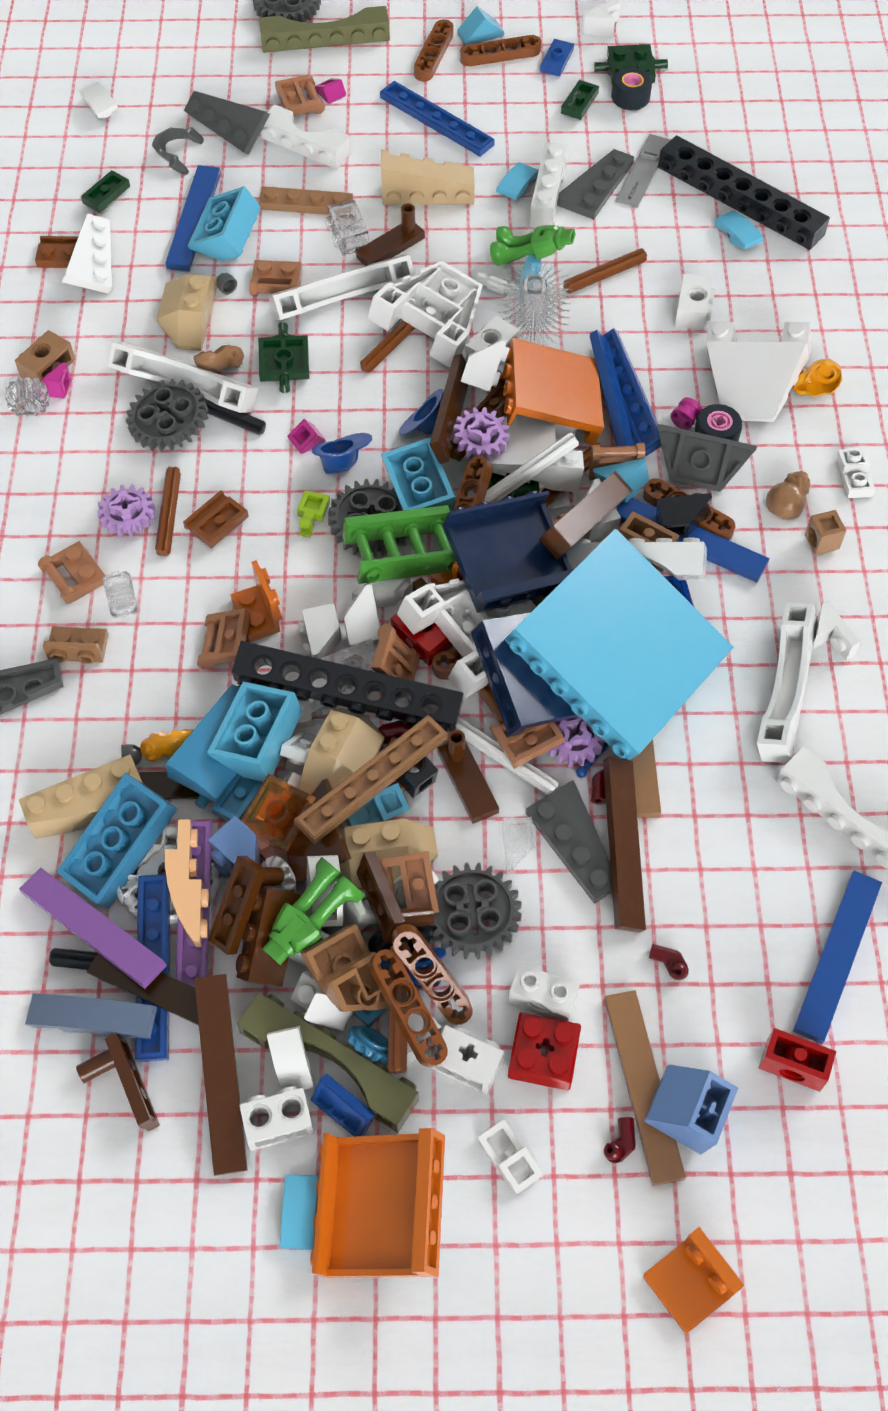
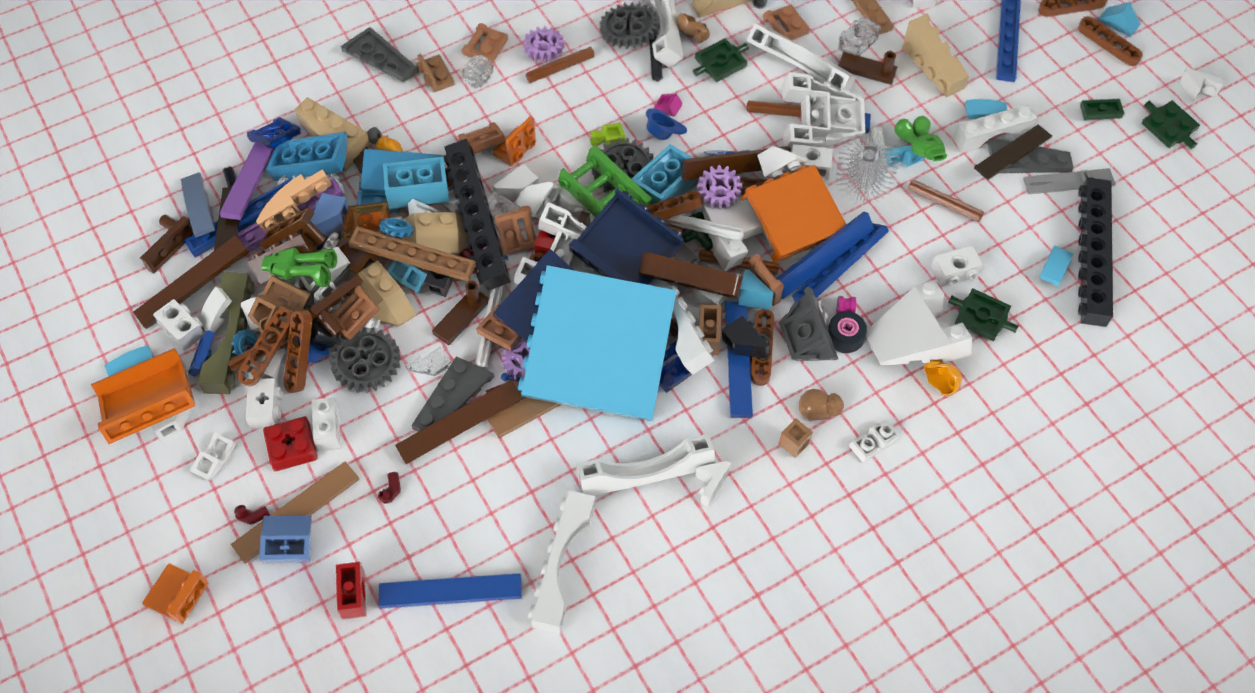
camera: 60 degrees right, 0 degrees up
(49, 867) = (274, 133): none -> clear blue plate
(216, 519) = (568, 90): dark orange plate -> none
(324, 776) = (396, 227): none -> dark azure gear
(557, 57) = (1135, 77): blue plate -> none
(589, 187) = (1013, 152): none -> dark brown piece
(631, 88) = (1141, 134): black wheel -> none
(762, 312) = (983, 314): none -> dark green plate

